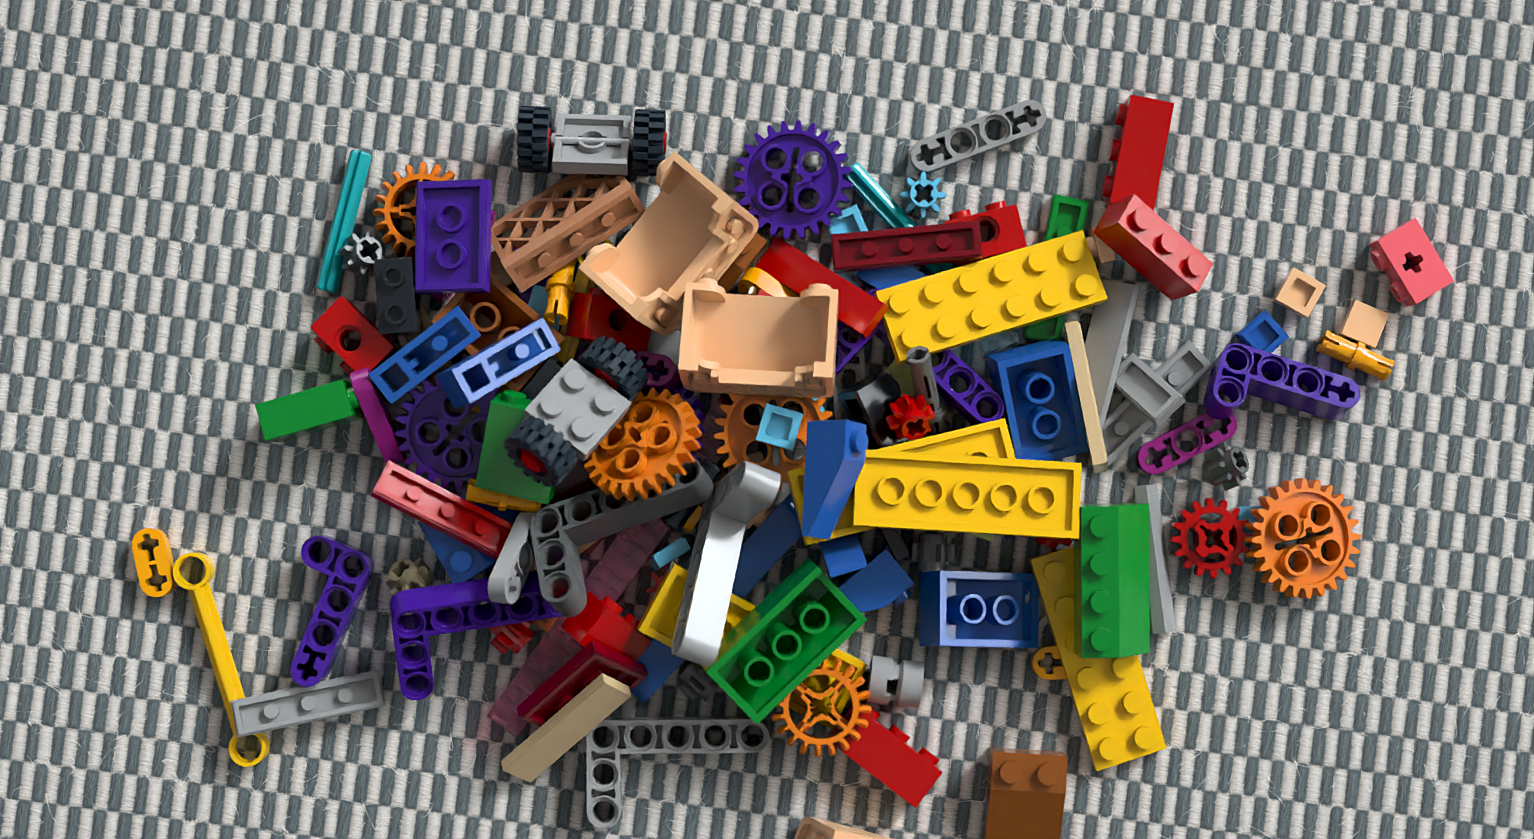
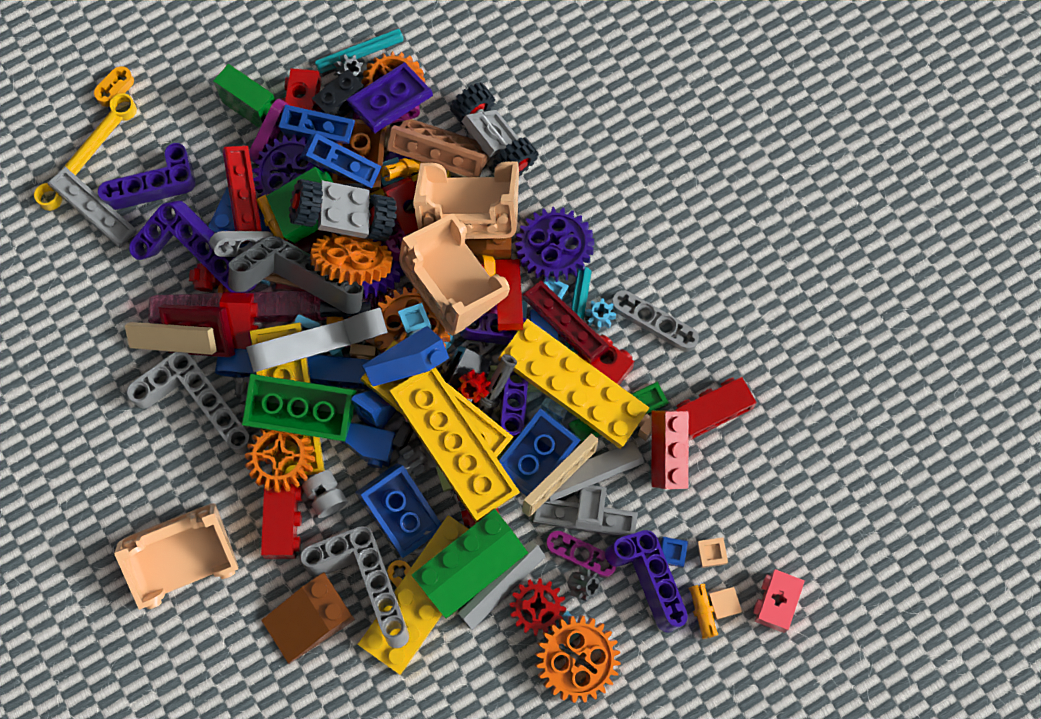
camera: 55 degrees right, 15 degrees down
(409, 575) = (198, 206): dark tan gear -> none
(1036, 702) = (372, 576): none -> light grey beam

